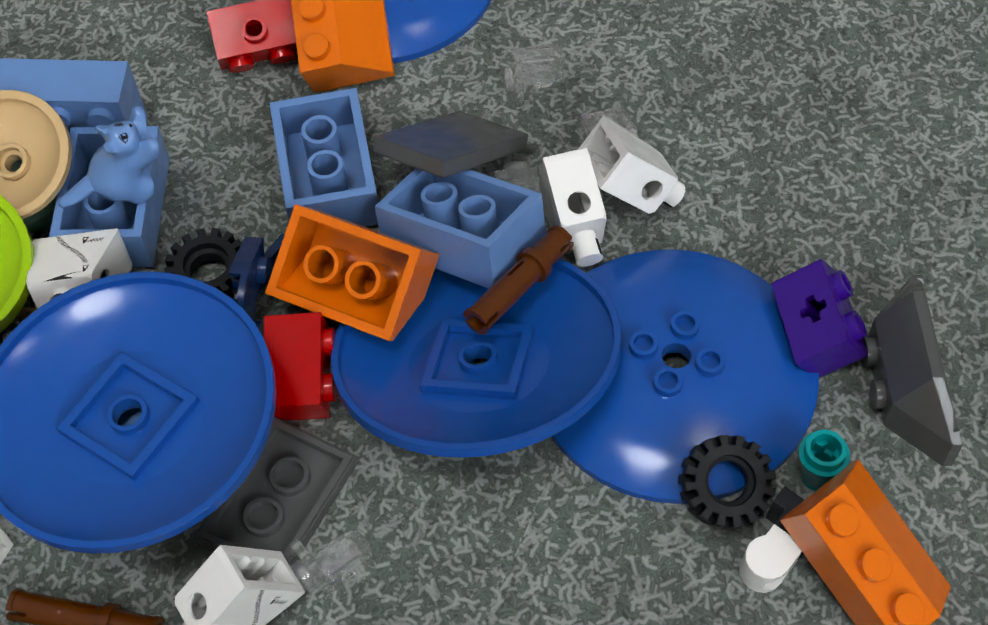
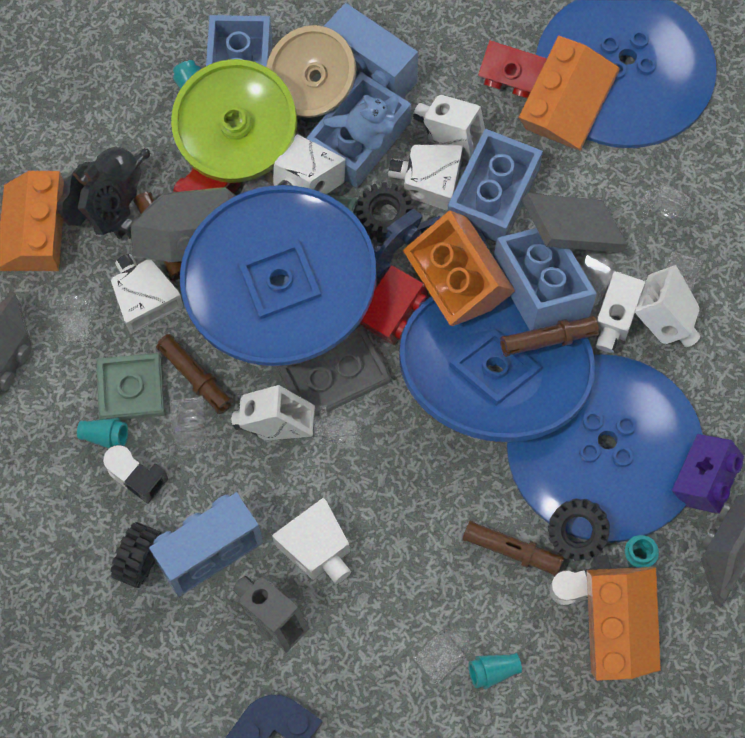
camera: 35 degrees right, 10 degrees up
(226, 126) = (452, 123): none -> white torso
(235, 196) = (430, 173): none -> white torso
(664, 560) = (513, 548): none -> reddish brown pin

